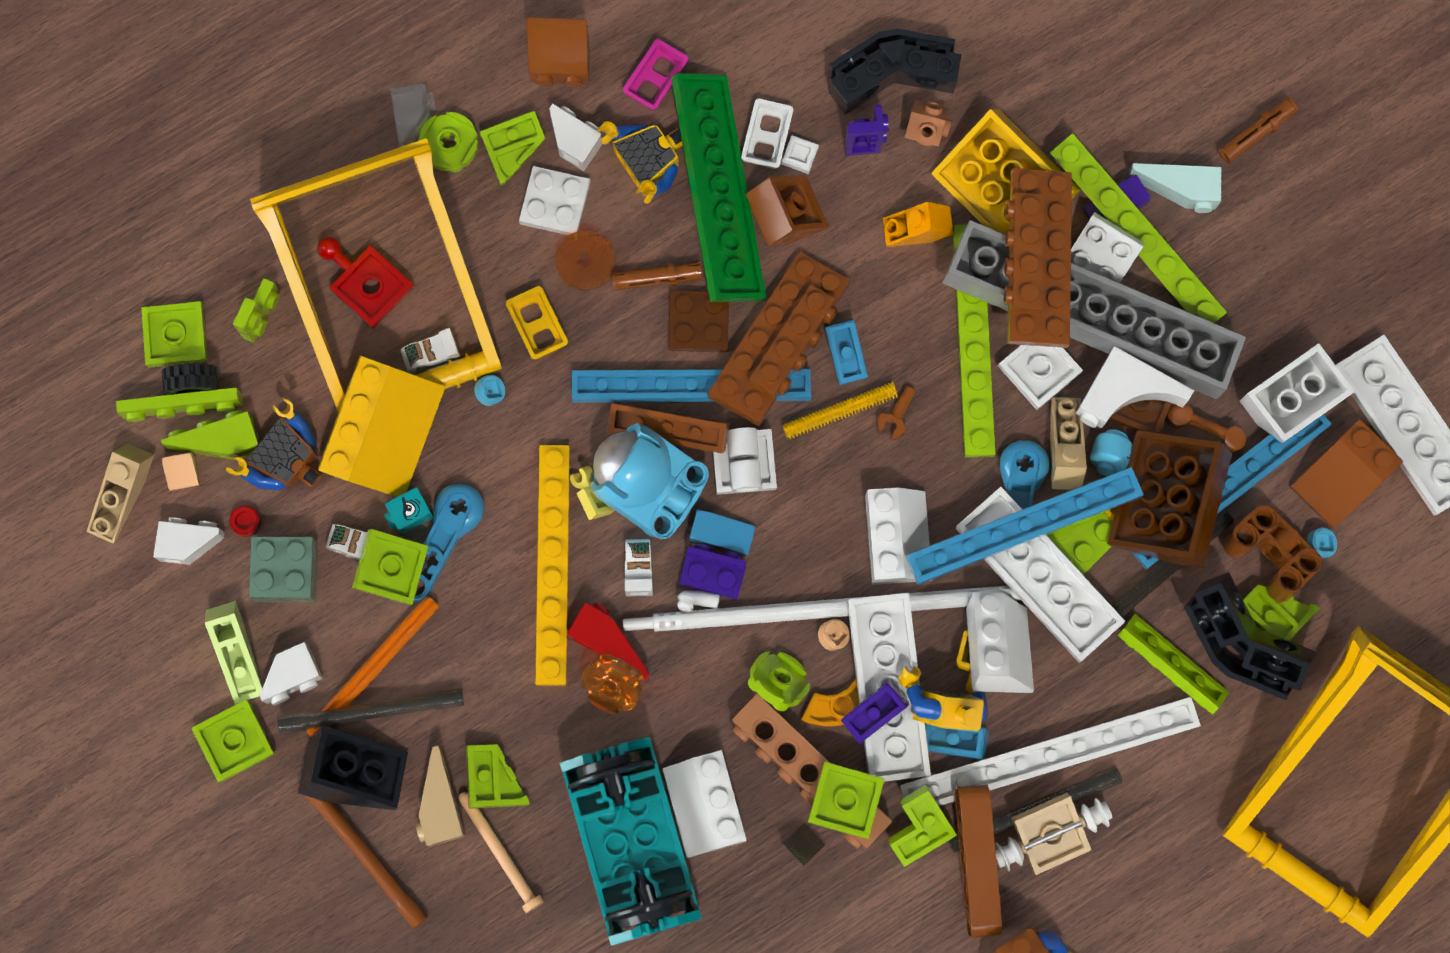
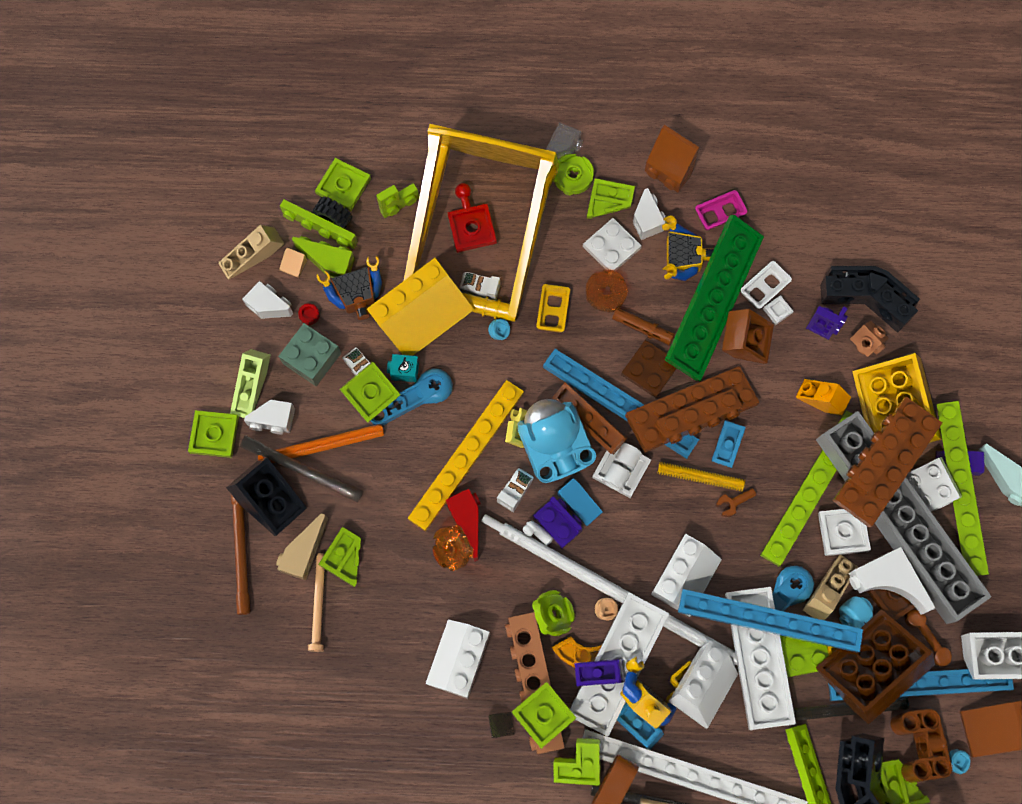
camera: 40 degrees right, 5 degrees down
(630, 840) = (397, 649): teal piece -> none

